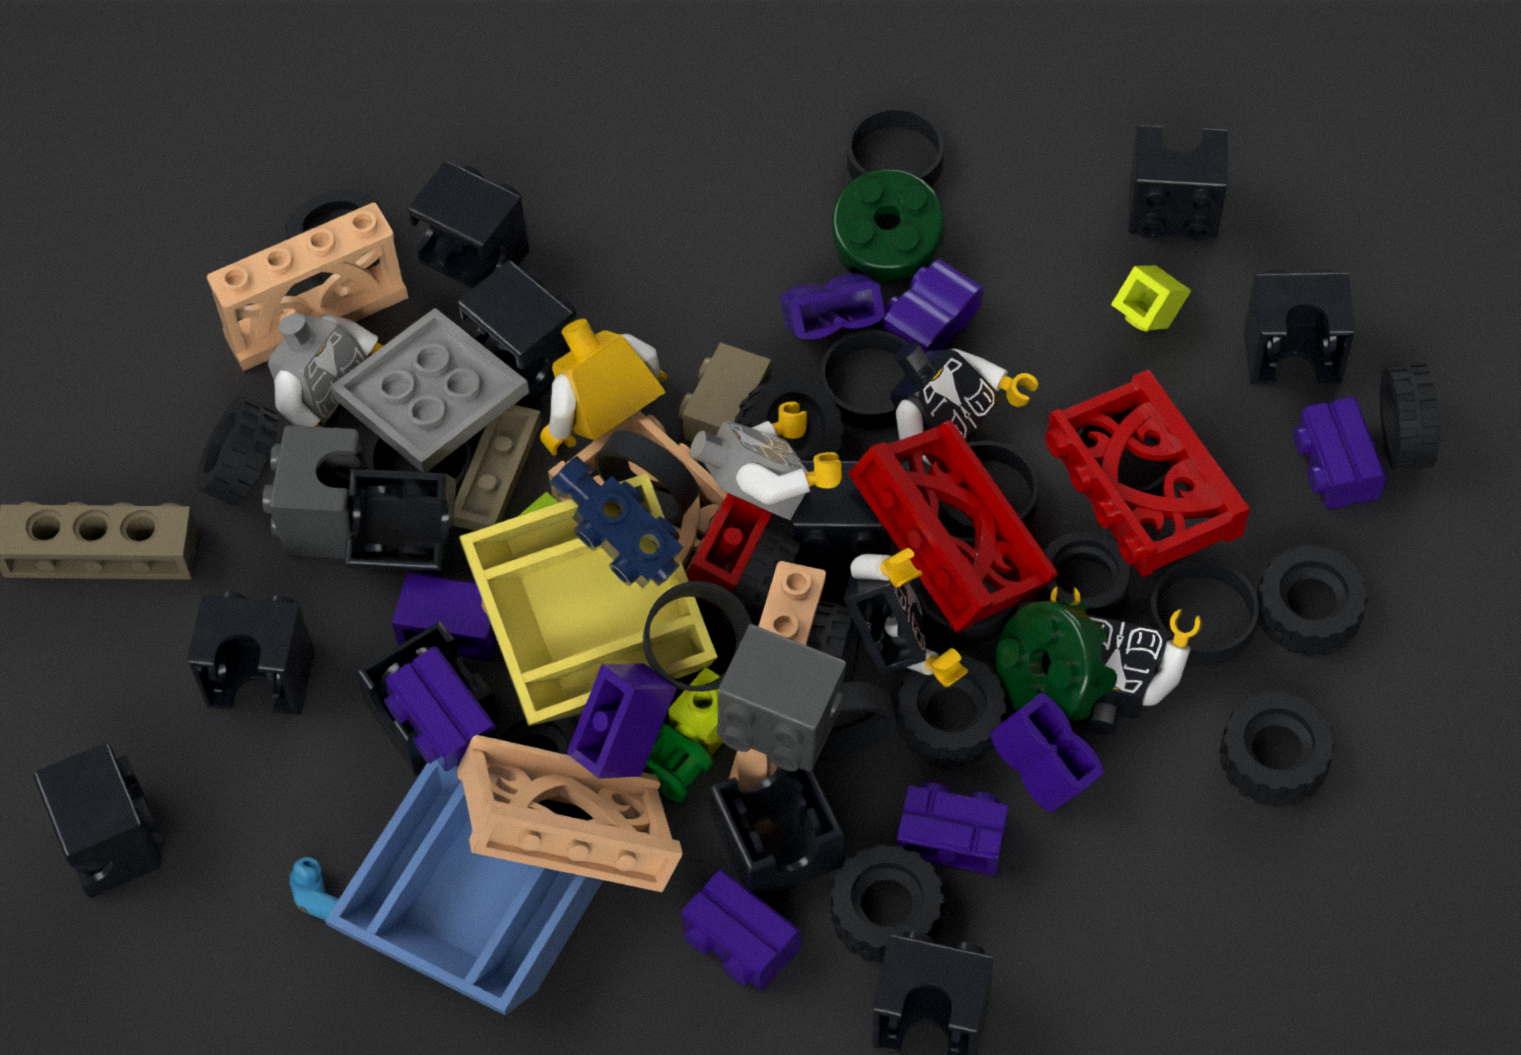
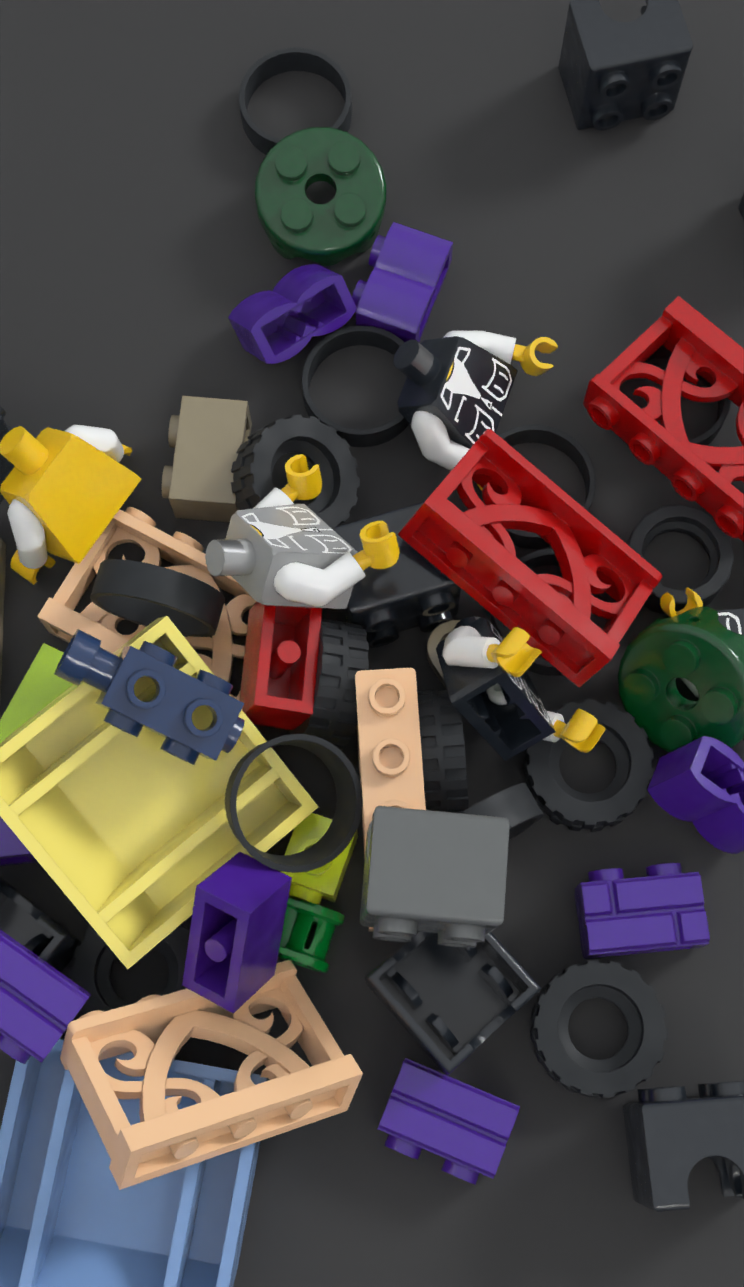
camera: 20 degrees left, 15 degrees up
(1150, 298) = (638, 204): neon yellow brick -> none

